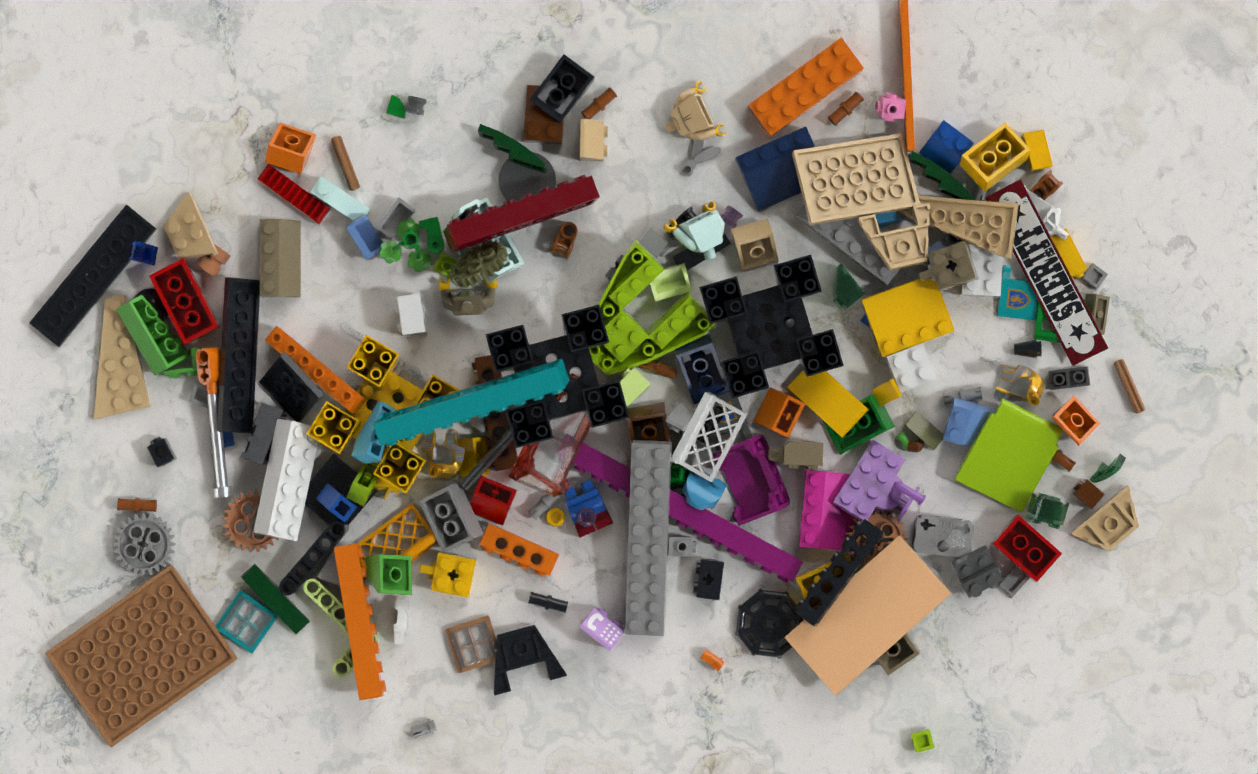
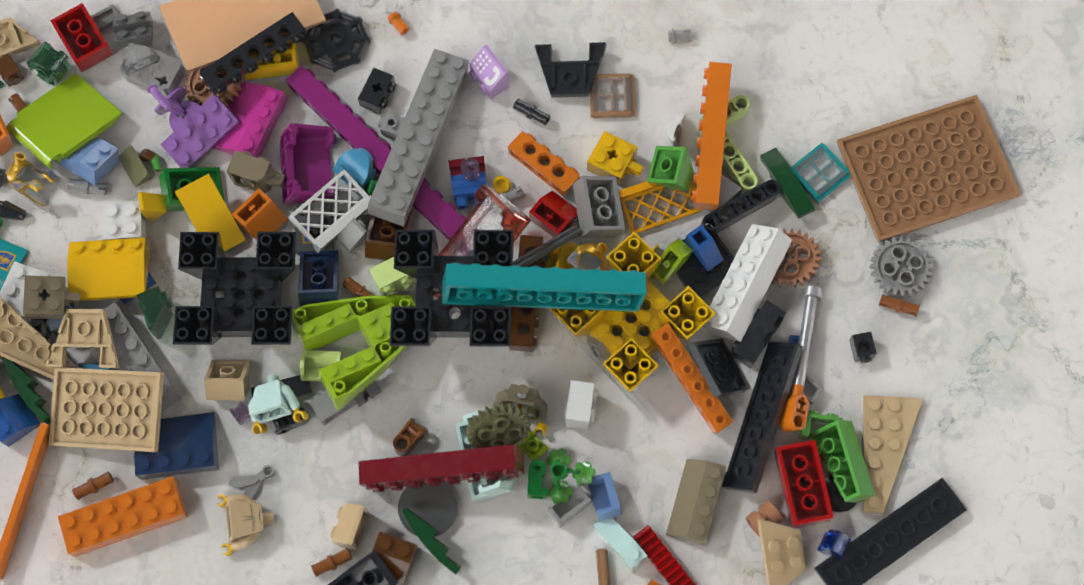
camera: 160 degrees left, 15 degrees down
(367, 446) = (658, 289): medium azure slope -> none
(890, 107) = (47, 472): bright pink brick -> none

